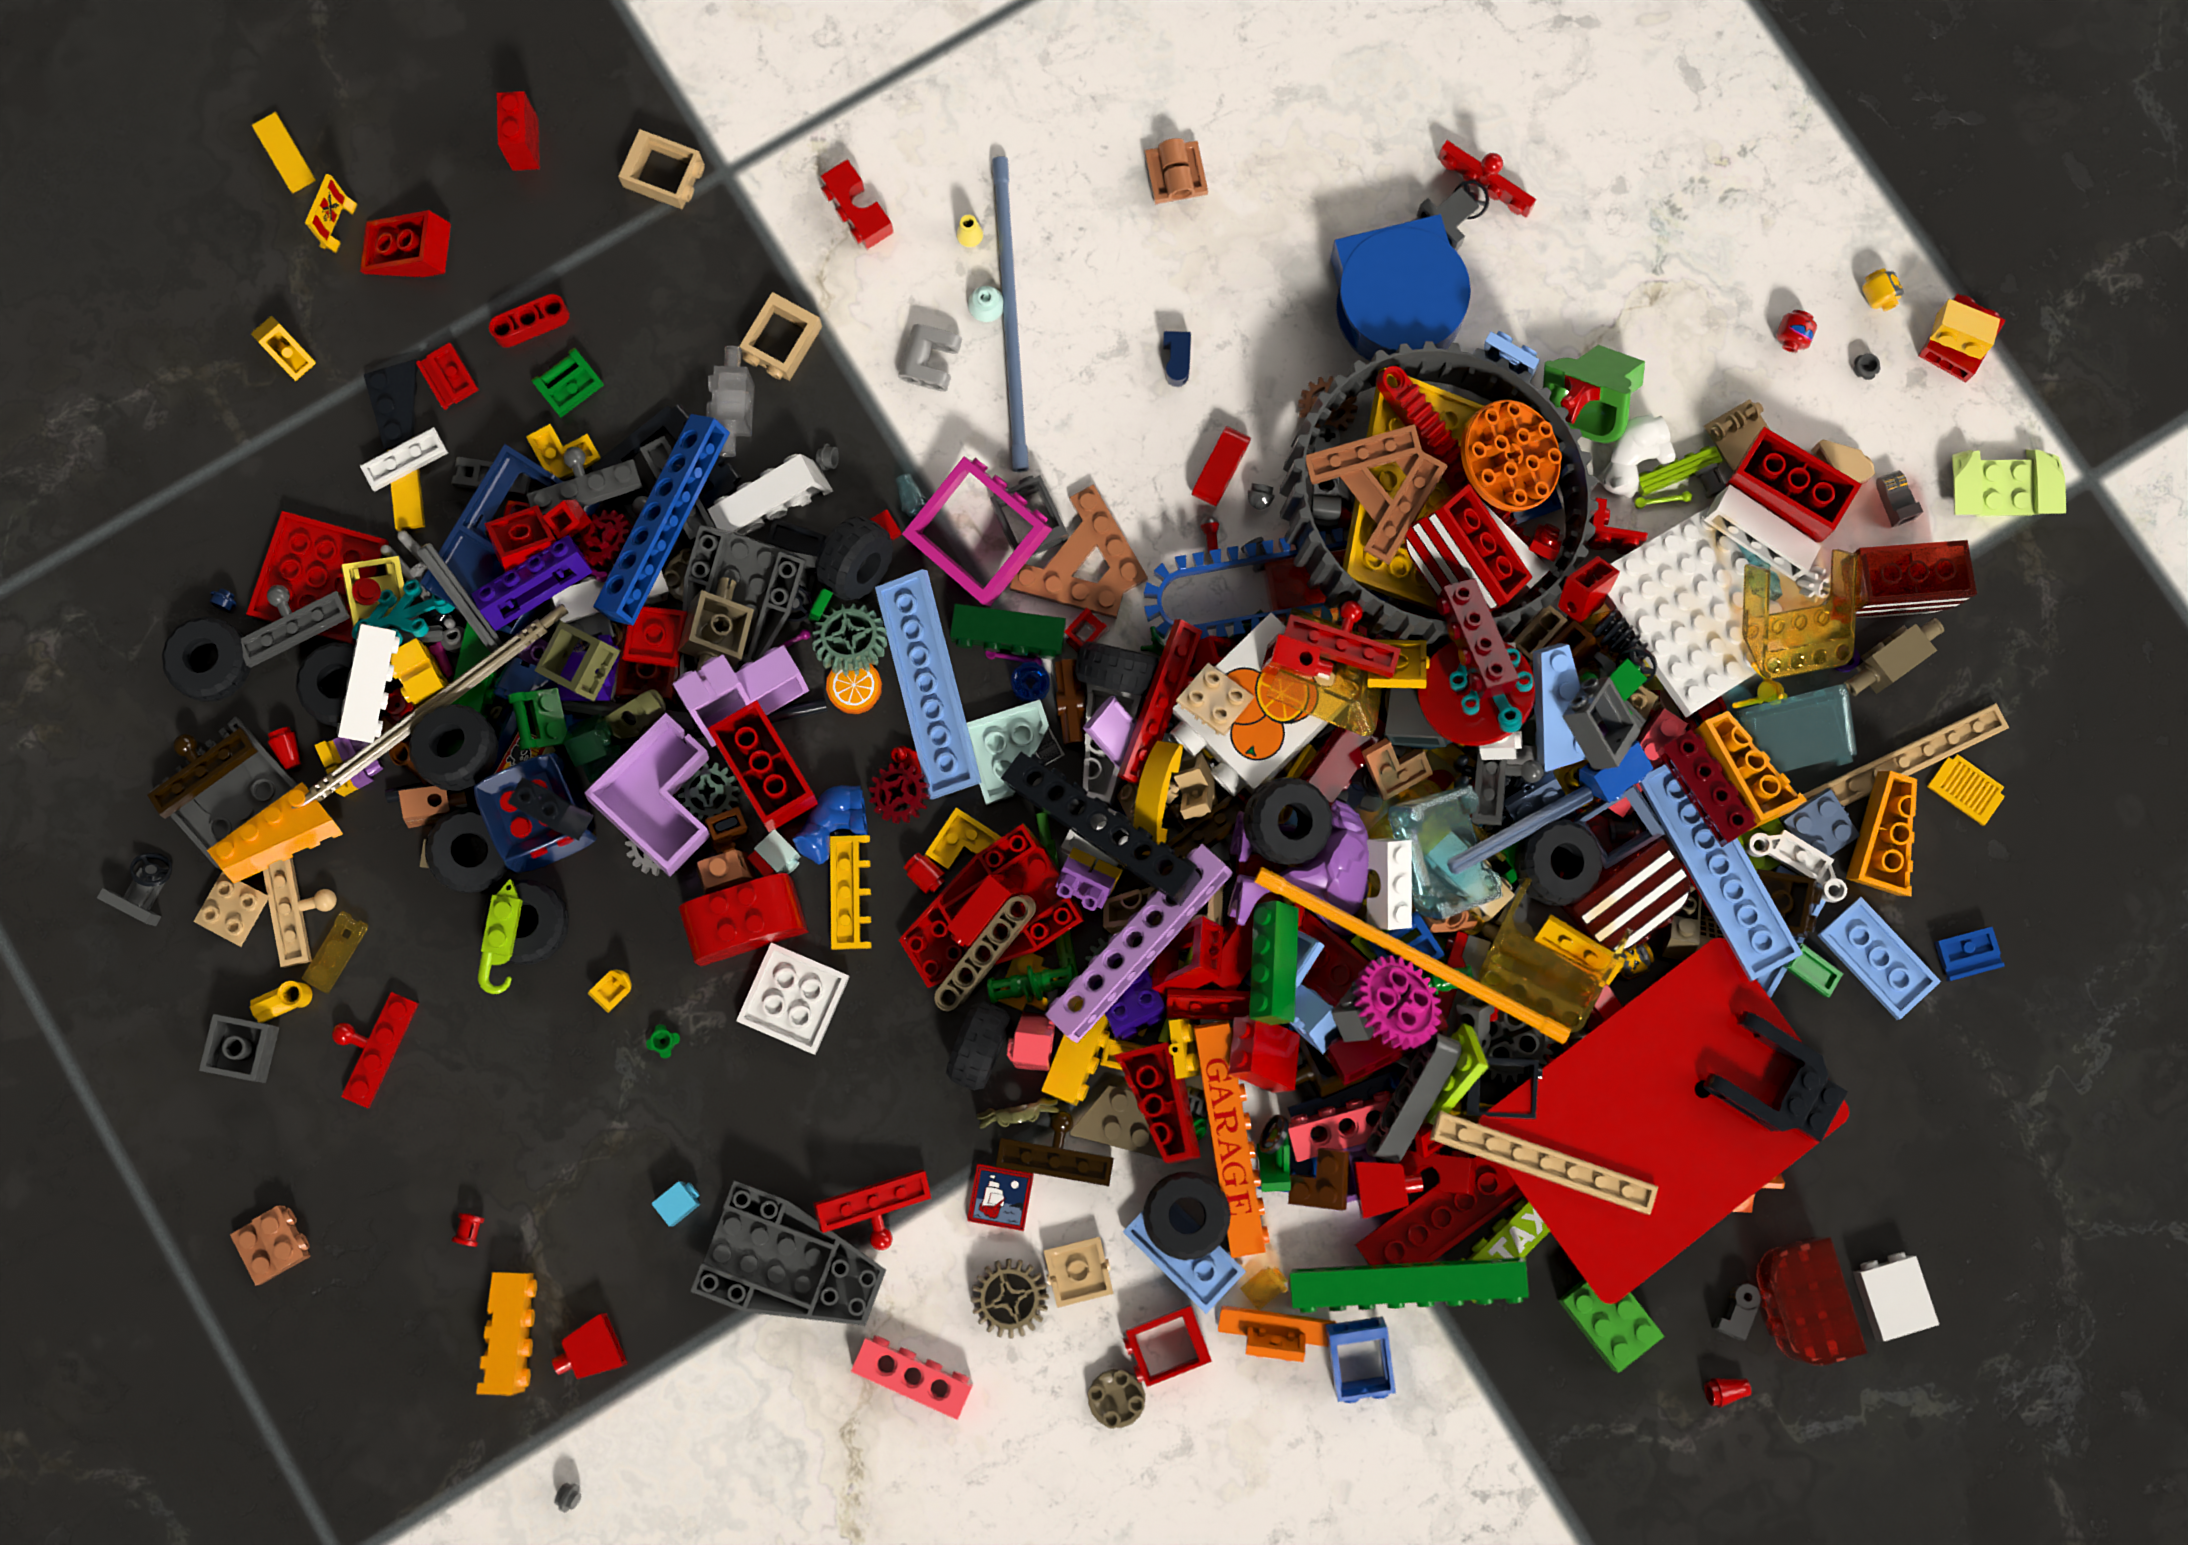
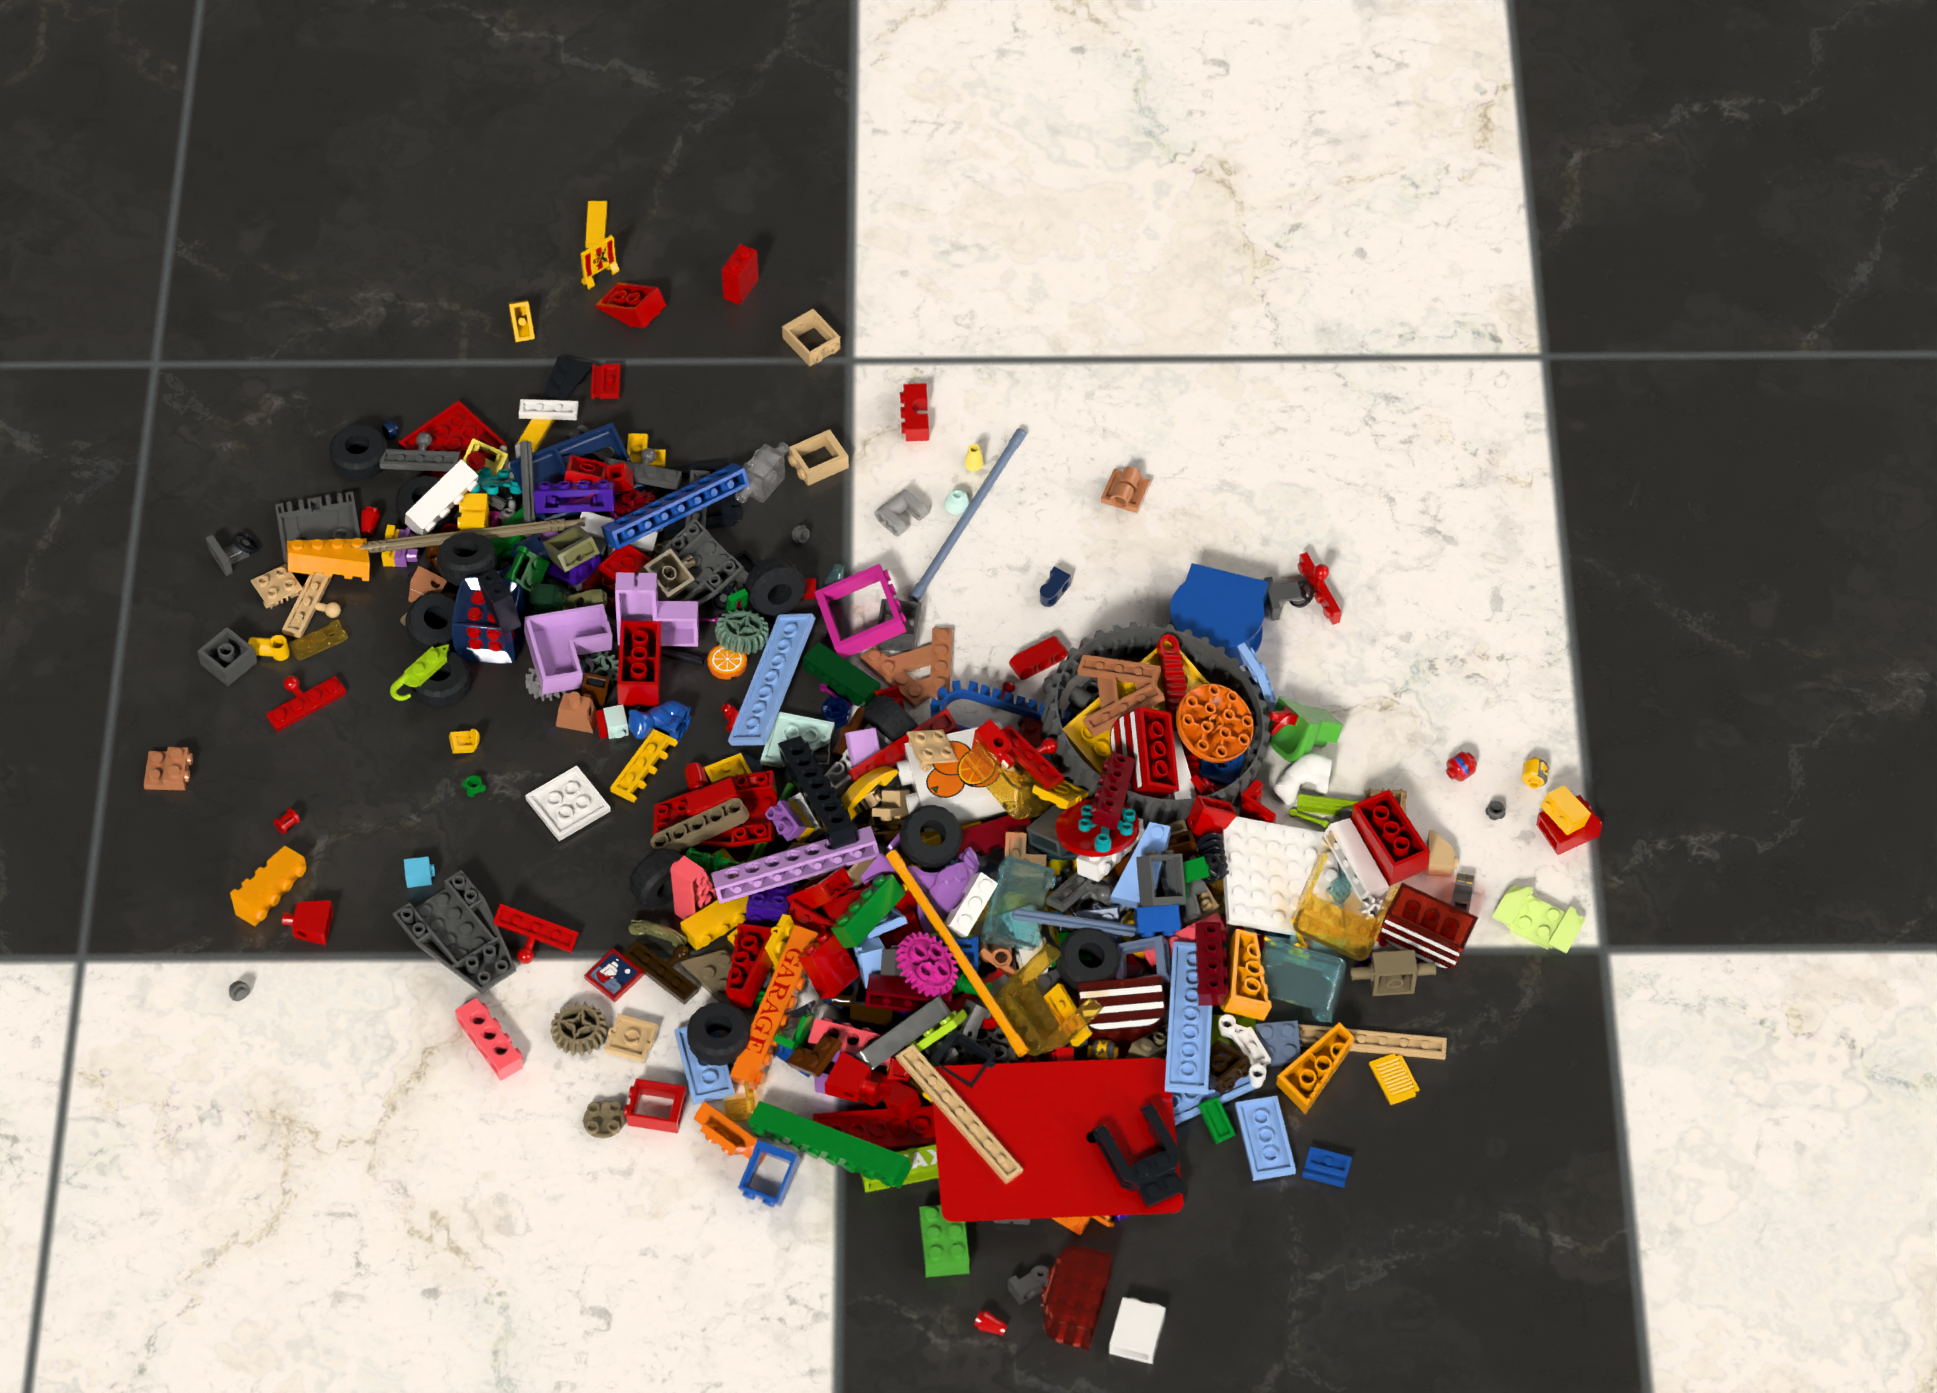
camera: 30 degrees right, 25 degrees down
(201, 771) = (313, 504): dark brown plate -> none
(516, 317) = (675, 376): red beam -> none
(572, 388) = (674, 424): green plate -> none
(742, 918) = (569, 739): red brick -> none
(770, 495) = (753, 534): white wedge -> none
(905, 784) = (712, 727): dark red gear -> none

